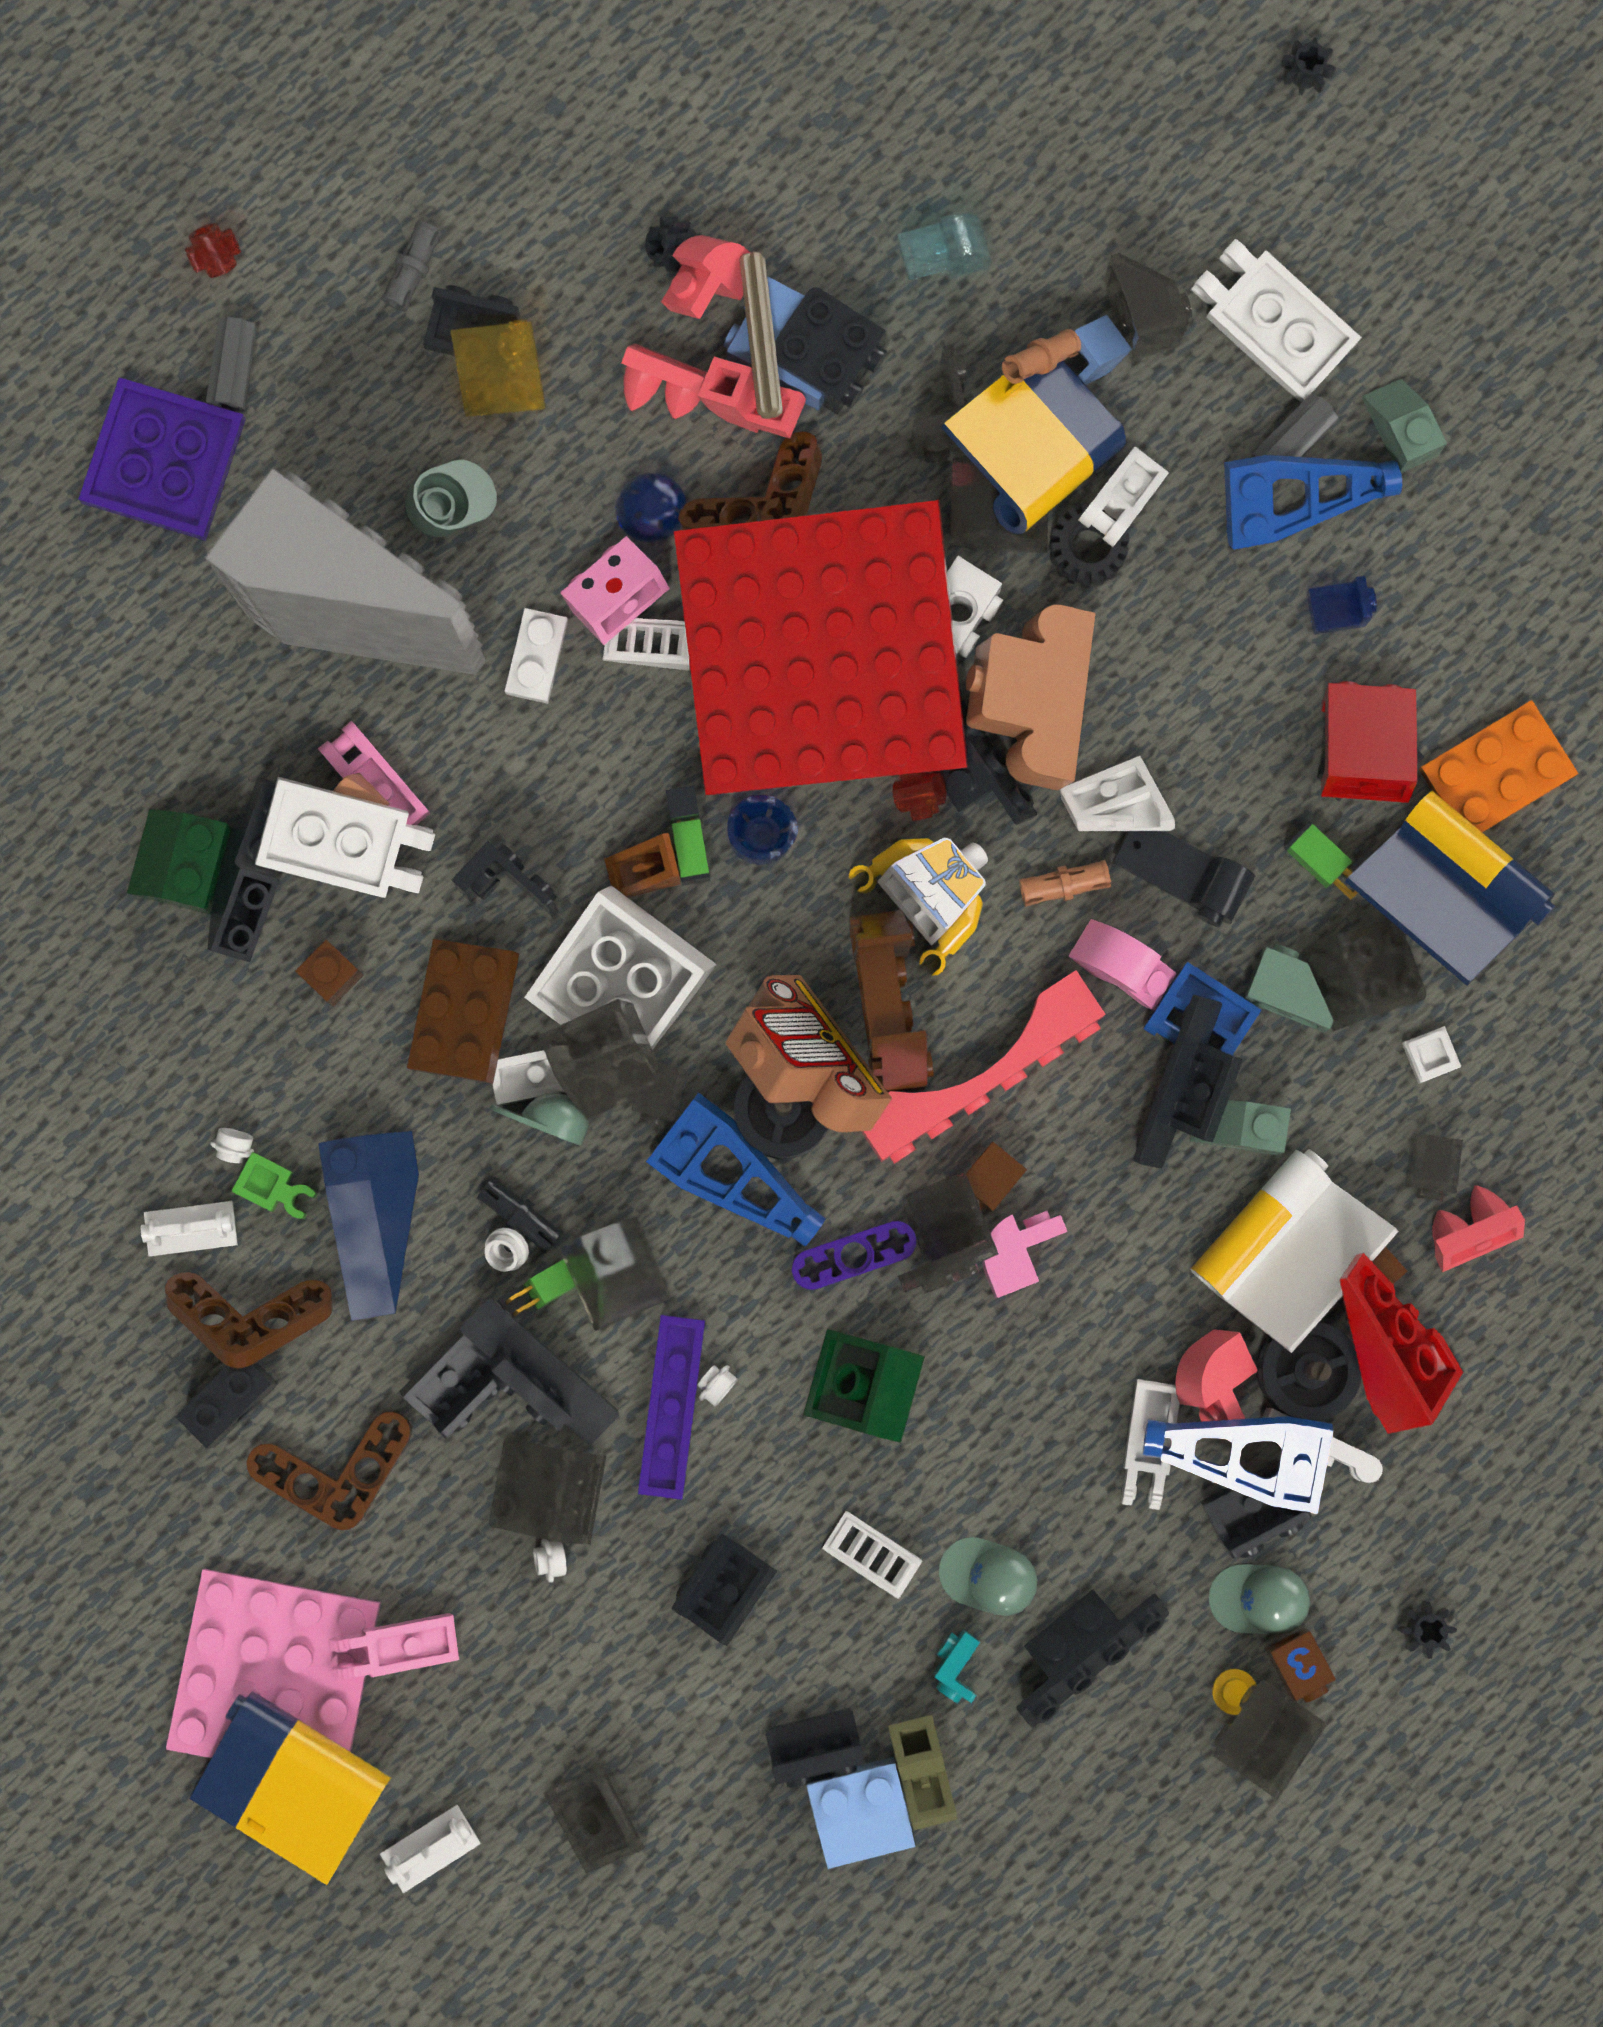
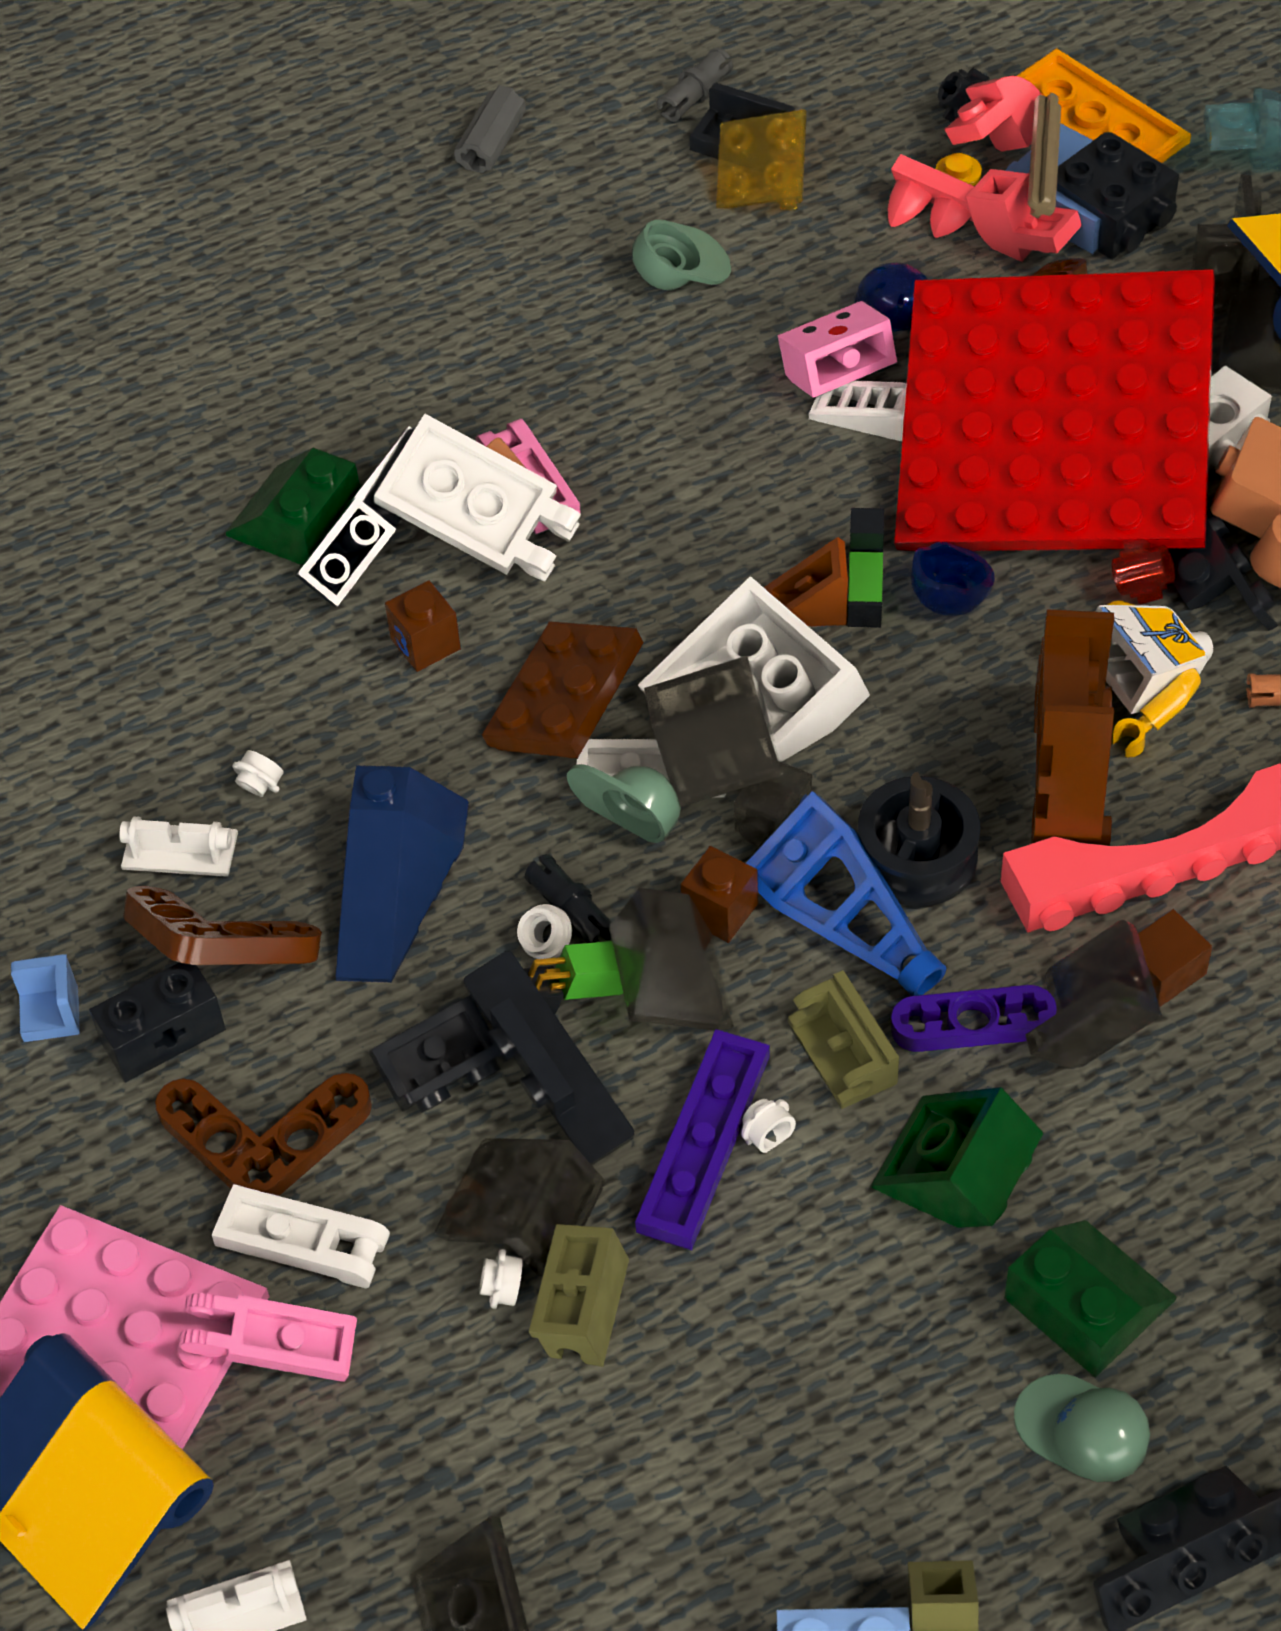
camera: 20 degrees right, 30 degrees down
(133, 1398) = (46, 997): none -> medium blue panel
(162, 459) = (395, 190): dark purple plate -> none
(212, 250) = (501, 43): clear red gear -> none
(268, 1183) = (285, 817): bright green plate -> none
(336, 587) = (548, 240): light grey slope -> none
(389, 1554) = (299, 1235): none -> white plate
(481, 872) = (639, 548): black bracket -> none
(536, 655) = (736, 401): white plate -> none
(610, 1561) = (580, 1292): none -> olive hinge
(636, 1191) = (722, 891): none -> reddish brown brick
(680, 335) = (961, 167): none -> yellow plate
(723, 1588) = (717, 1356): black bracket -> none
(759, 1302) = (844, 1040): none -> olive hinge
(793, 231) = (1098, 106): none -> light orange tile
(802, 1055) = (960, 760): brick -> none
(814, 1748) = (797, 1580): black bracket -> none
(905, 1573) = (947, 1405): white slope -> none
(954, 1655) = (1016, 1507): teal bracket -> none
(979, 1474) = (1085, 1294): none -> dark green slope
(1013, 1266) = (1175, 1045): bright pink brick -> none

